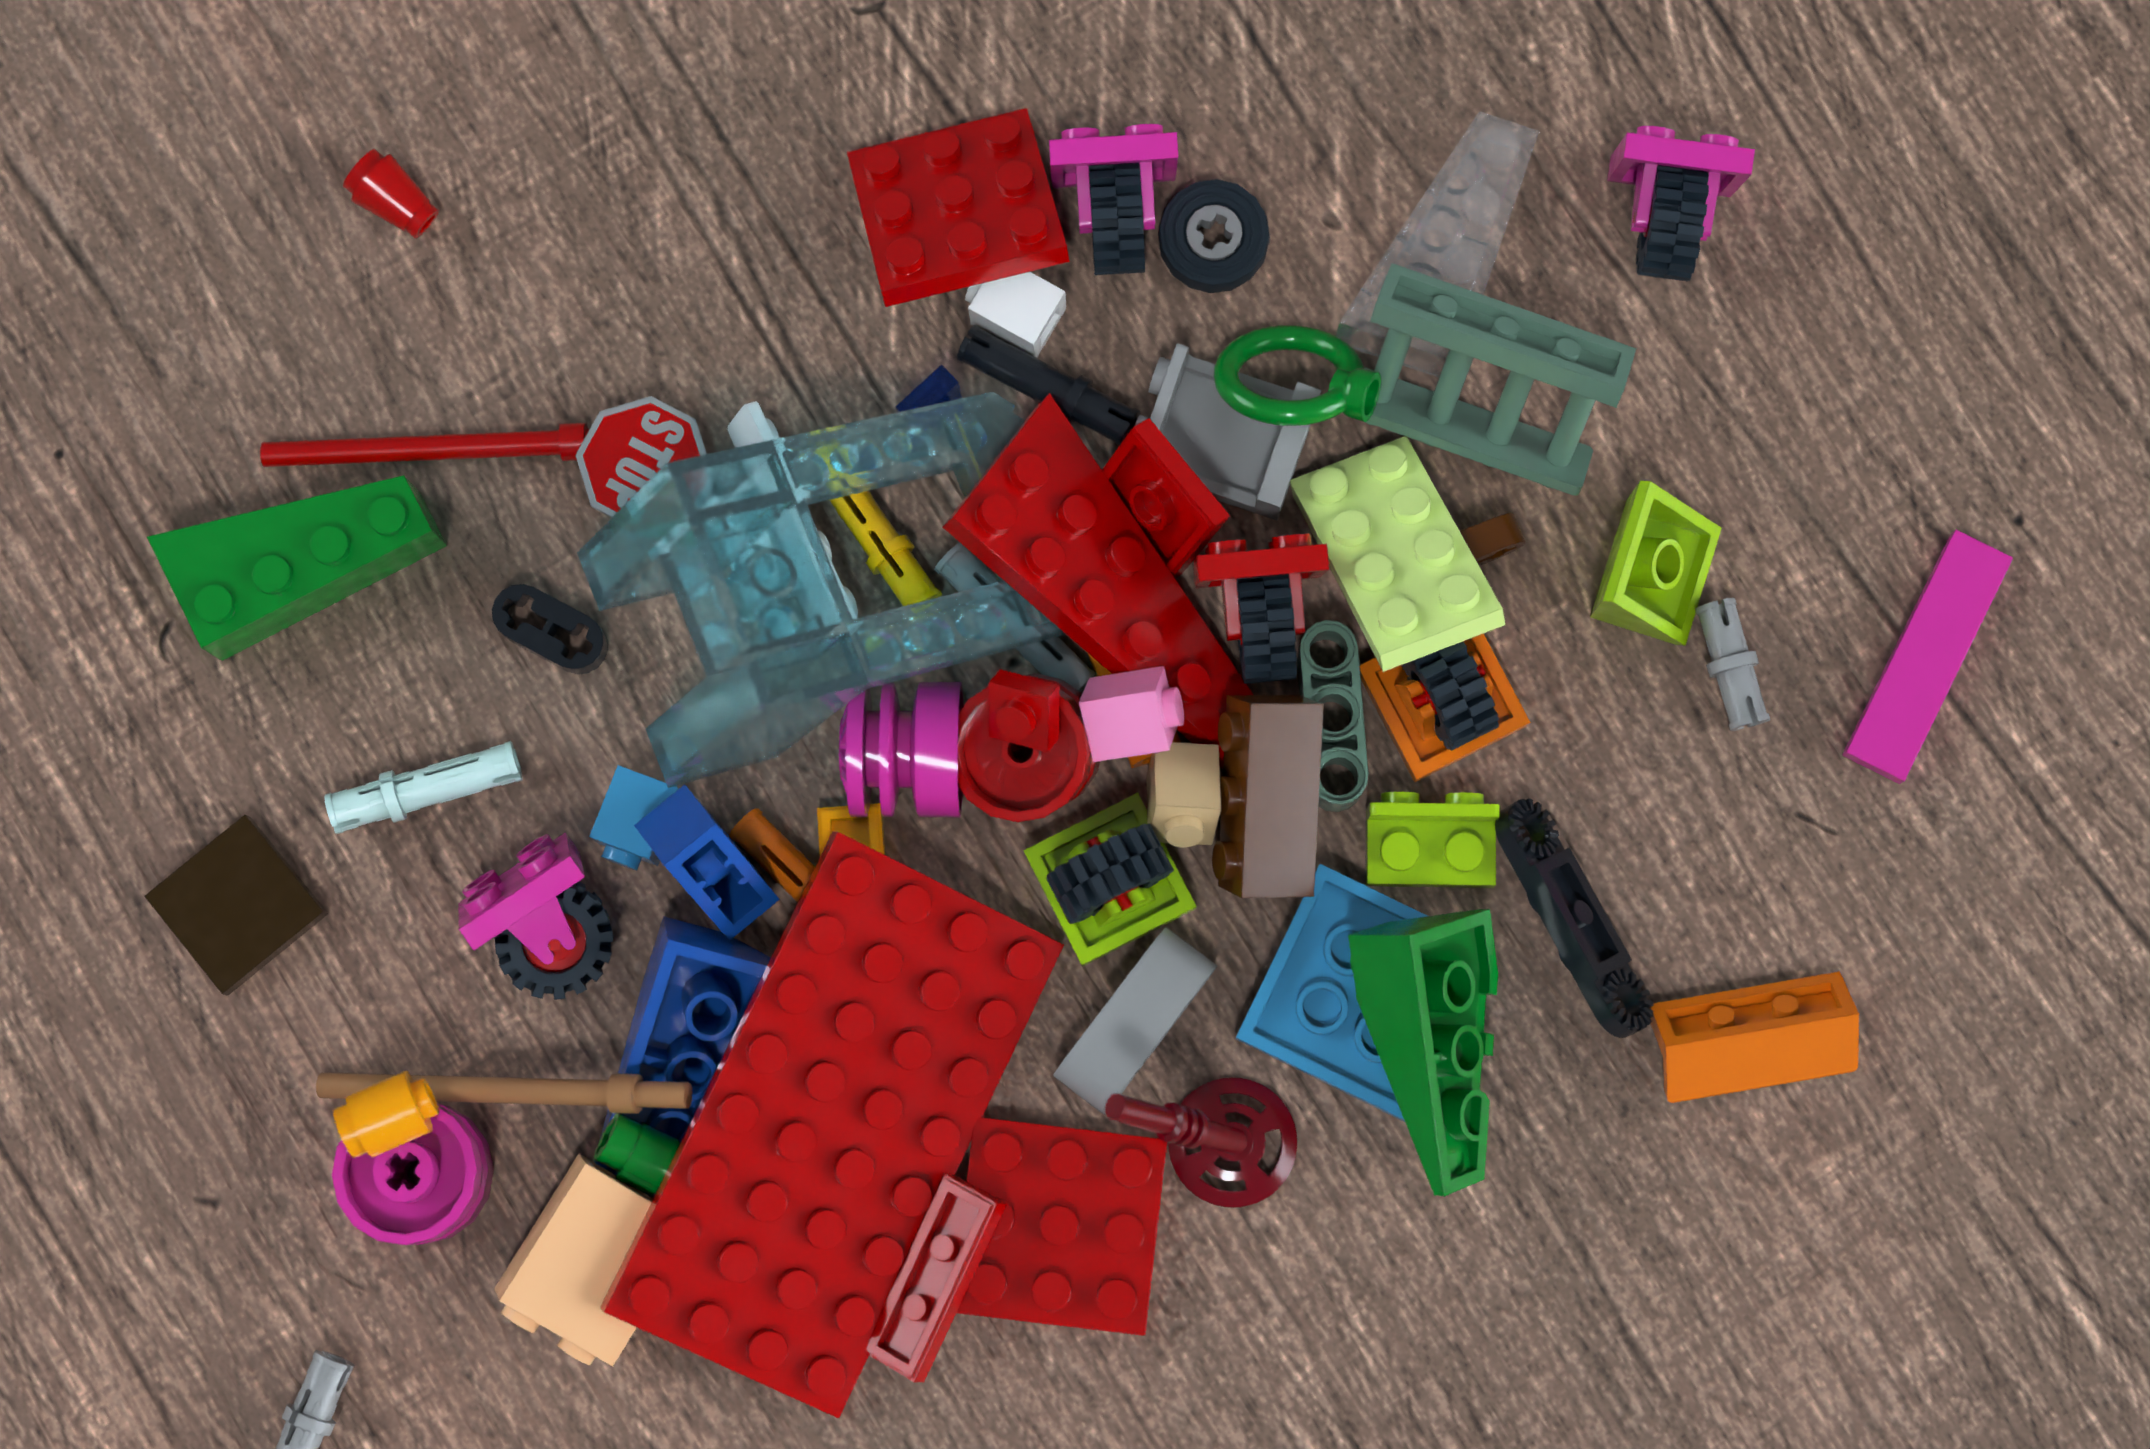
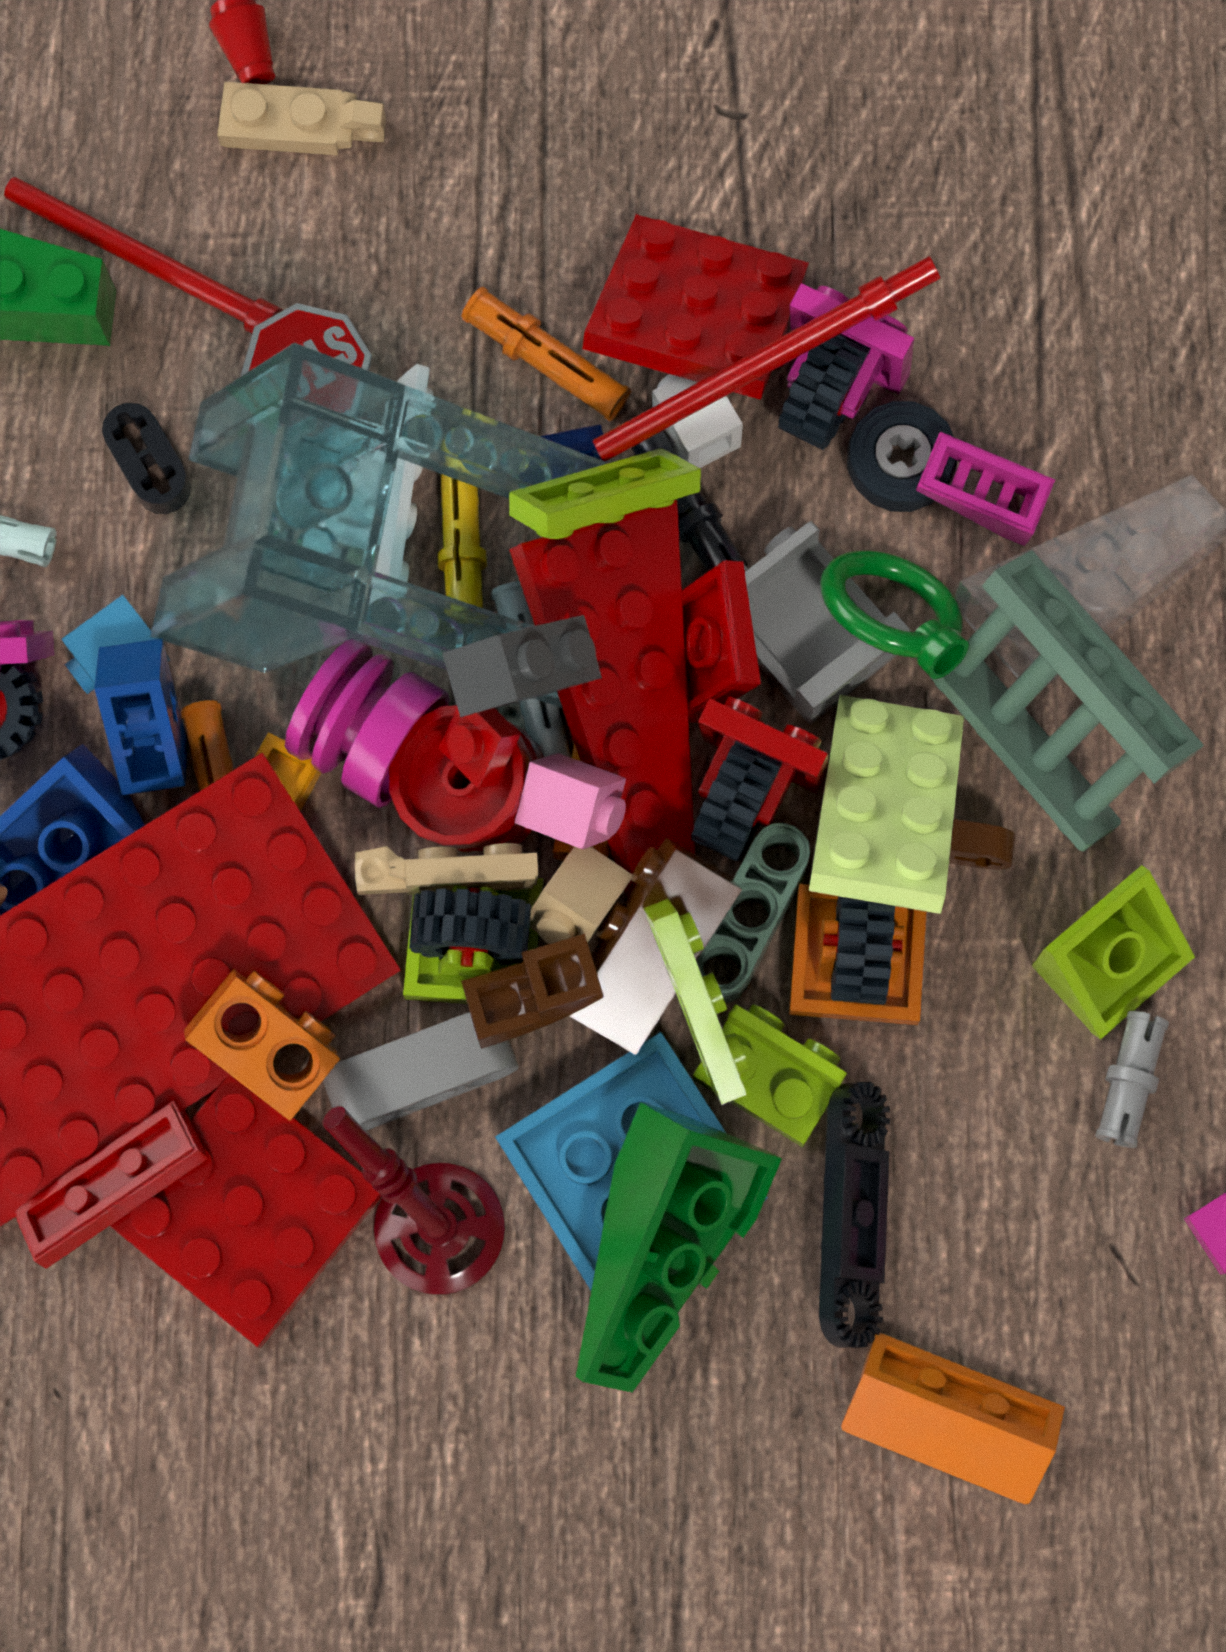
camera: 30 degrees right, 5 degrees down
(483, 240) = (296, 119): none -> tan hinge
(845, 326) = (526, 340): none -> orange pin
(991, 426) = (604, 493): none -> lime plate
(992, 1090) = (252, 1054): none -> orange brick
(1026, 625) = (521, 665): none -> dark grey brick
(1052, 839) = (440, 868): none -> tan hinge
(1126, 119) = (875, 300): none -> red bar
(1198, 896) = (534, 993): none -> reddish brown slope
(1344, 819) = (699, 999): none -> lime plate
(1345, 197) = (1014, 478): none -> dark pink slope

